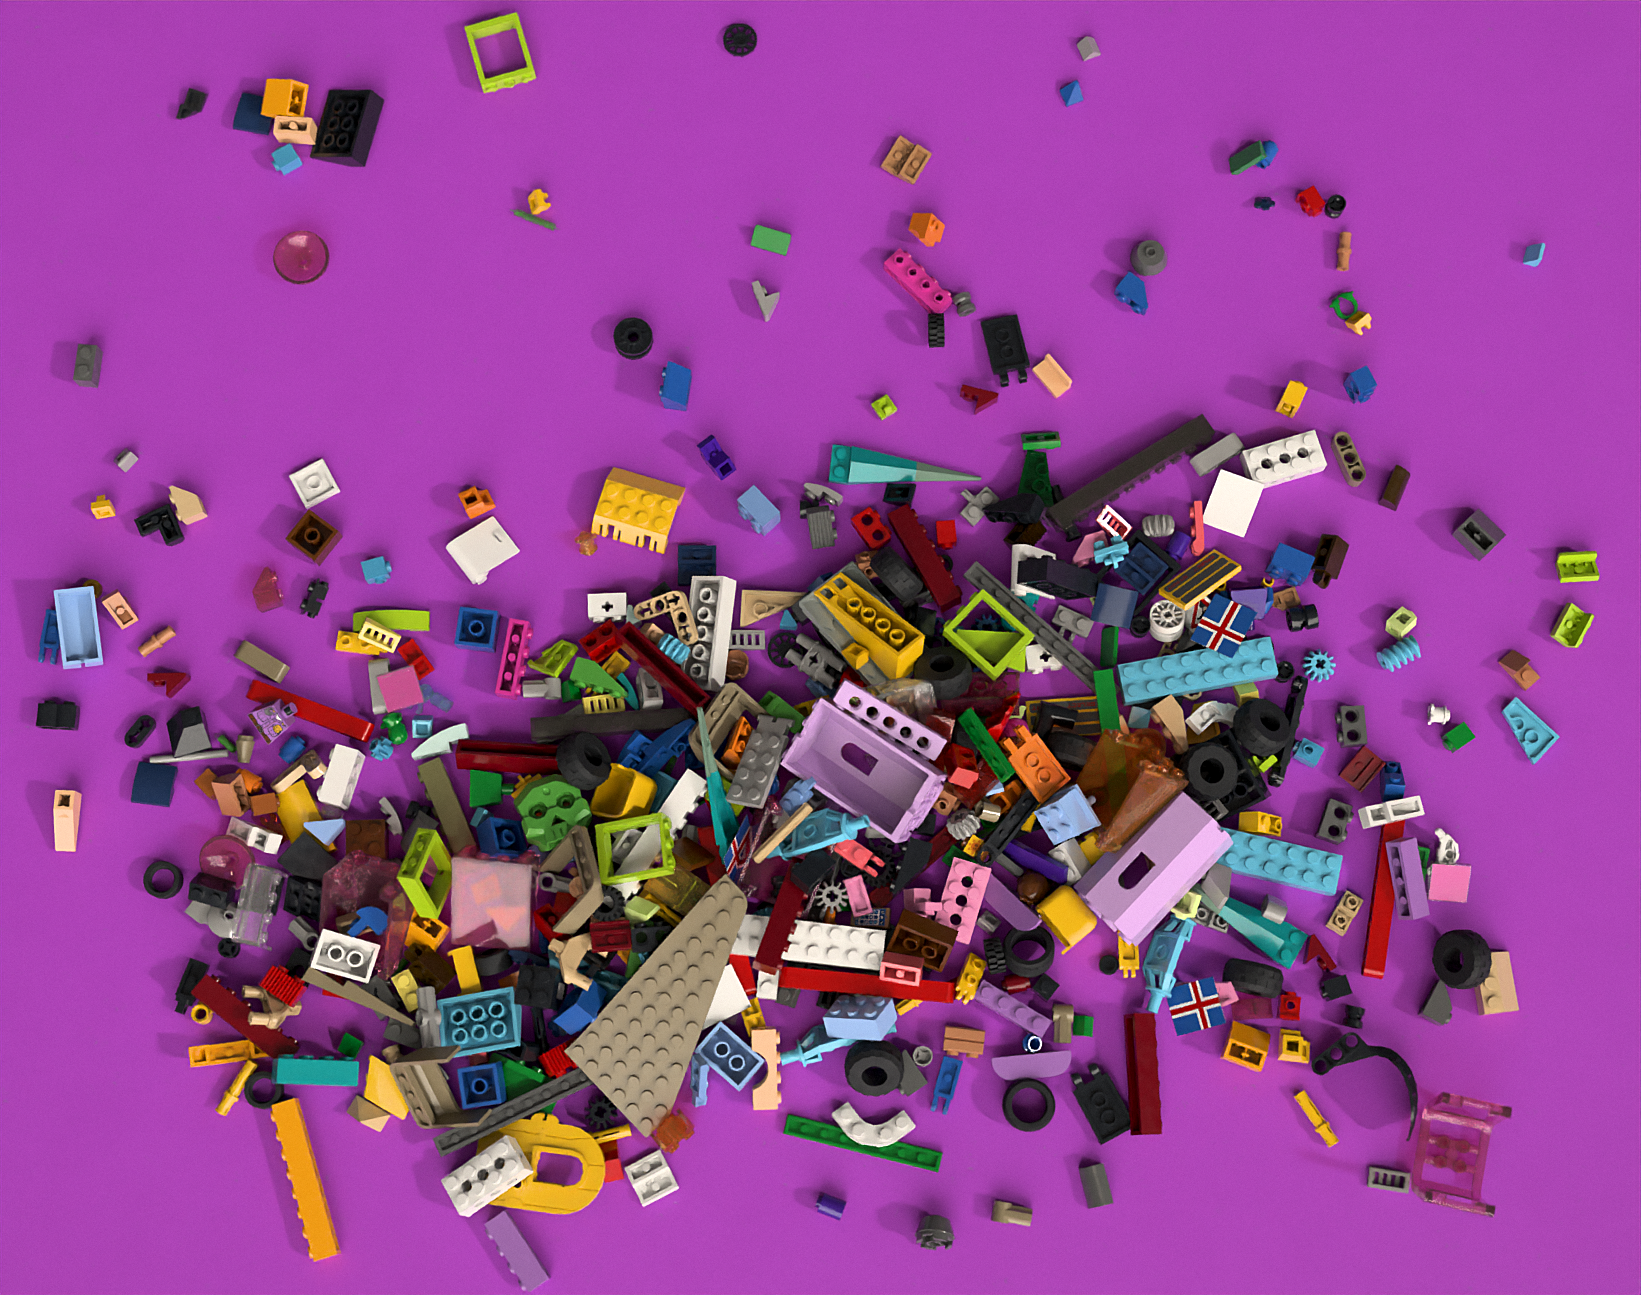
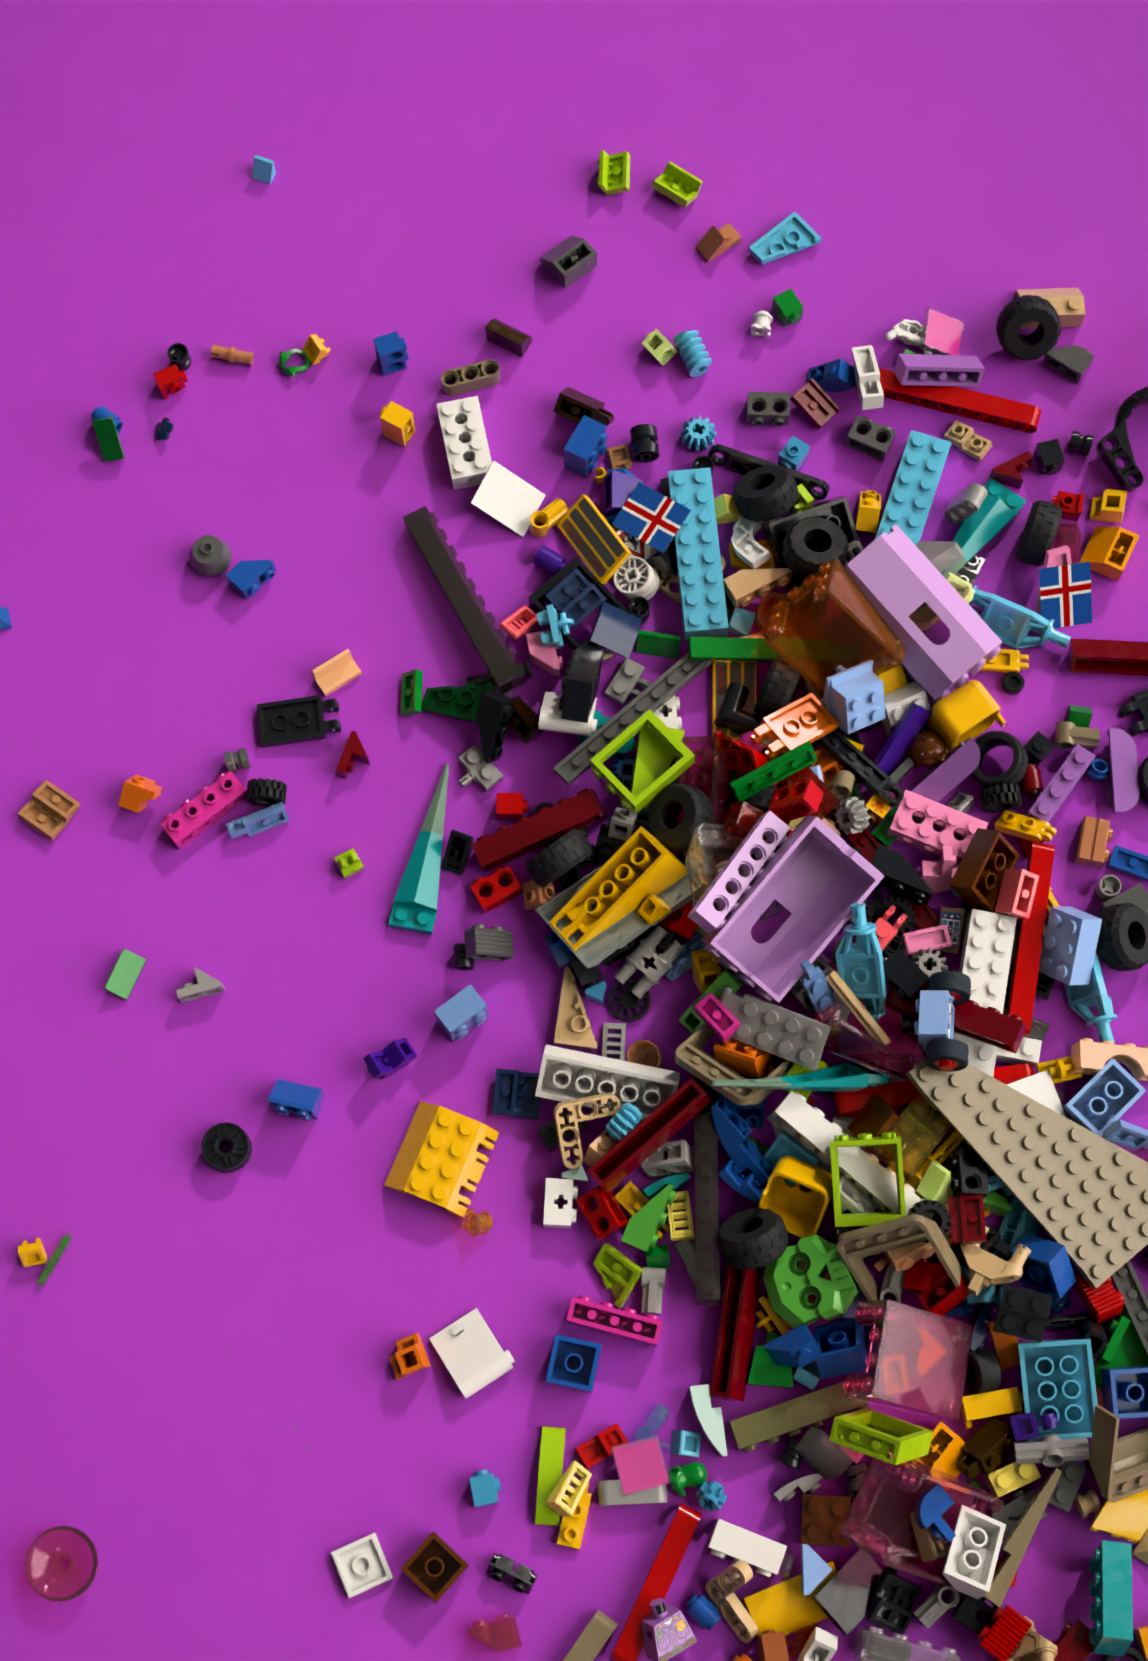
camera: 85 degrees left, 5 degrees down
(350, 1045) = (1073, 1557): green slope -> none
(446, 996) = (1026, 1426): none -> dark purple plate
(497, 802) = (794, 1348): none -> blue slope
(767, 716) = (717, 1017): none -> dark pink slope
(770, 894) = (936, 1020): none -> brick
(817, 491) = (444, 946): light grey slope -> none
(912, 329) = (258, 821): none -> medium blue hinge
(933, 626) = (623, 818): none -> light grey brick
(1158, 525) = (526, 577): light grey gear -> none
(1197, 528) = (532, 538): coral hinge -> none
(1217, 454) = (450, 509): light grey beam -> none
(1221, 542) = (548, 516): none -> yellow piece

